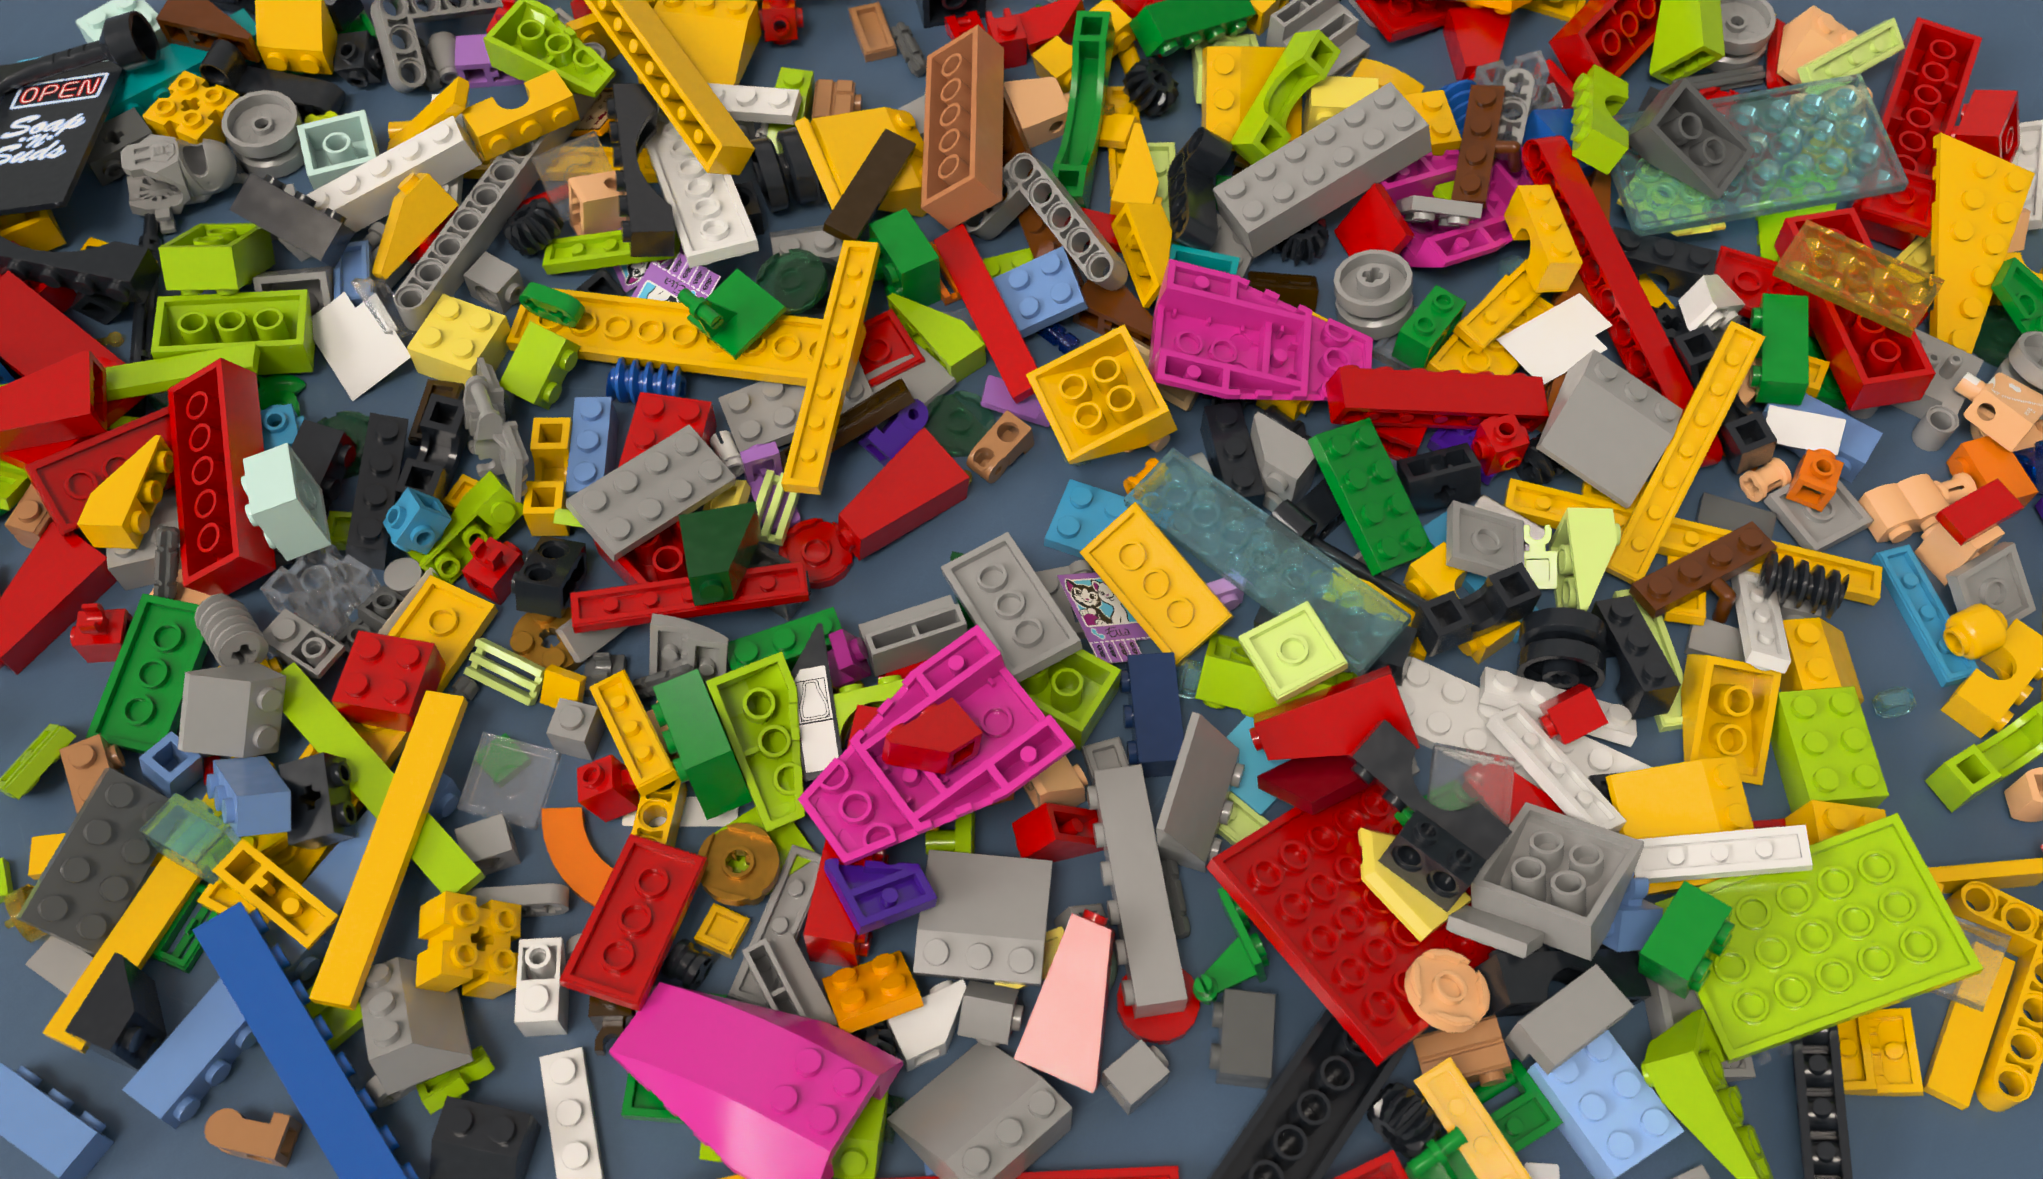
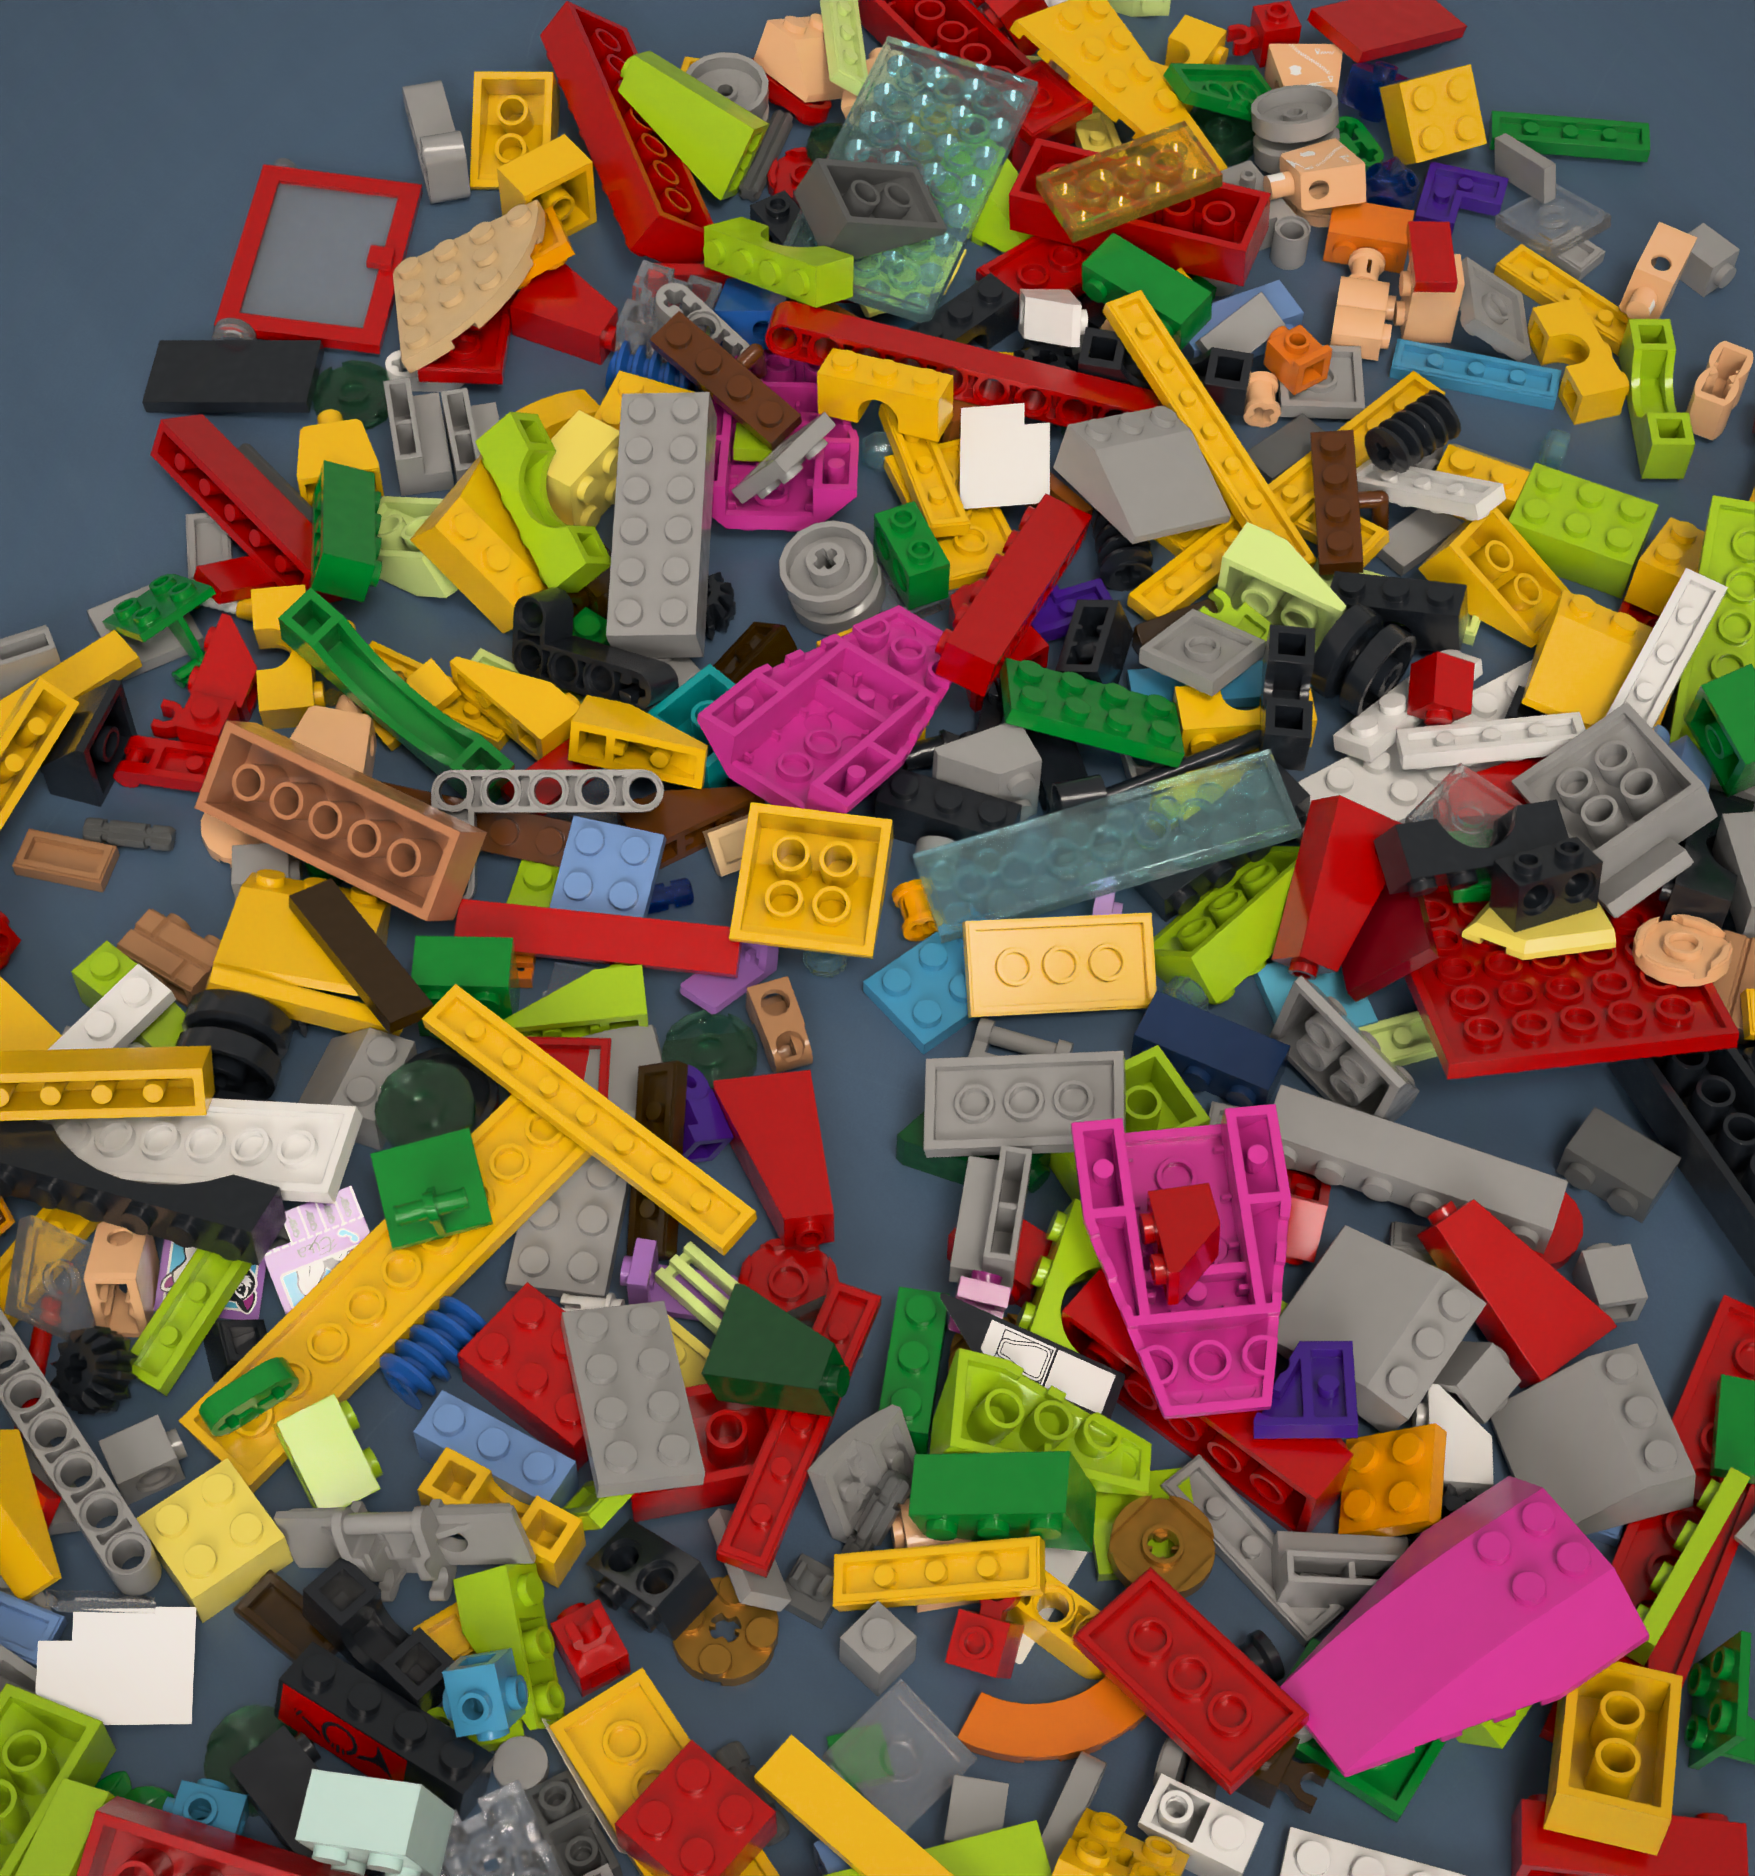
camera: 60 degrees left, 5 degrees down
(478, 659) = (754, 1715): yellowish green tile -> none
(561, 684) = (810, 1641): yellow tile -> none
(722, 930) = (1226, 1608): yellow tile -> none
(1103, 617) = (1061, 1034): sticker -> none
(1150, 87) = (394, 625): black gear -> none
(1239, 962) = (1534, 1104): green plate -> none
(1293, 652) = (1243, 875): yellowish green tile -> none
(1374, 224) = (751, 531): red tile -> none
(1500, 443) = (1096, 571): red brick -> none
(1975, 631) = (1530, 343): yellow head -> none

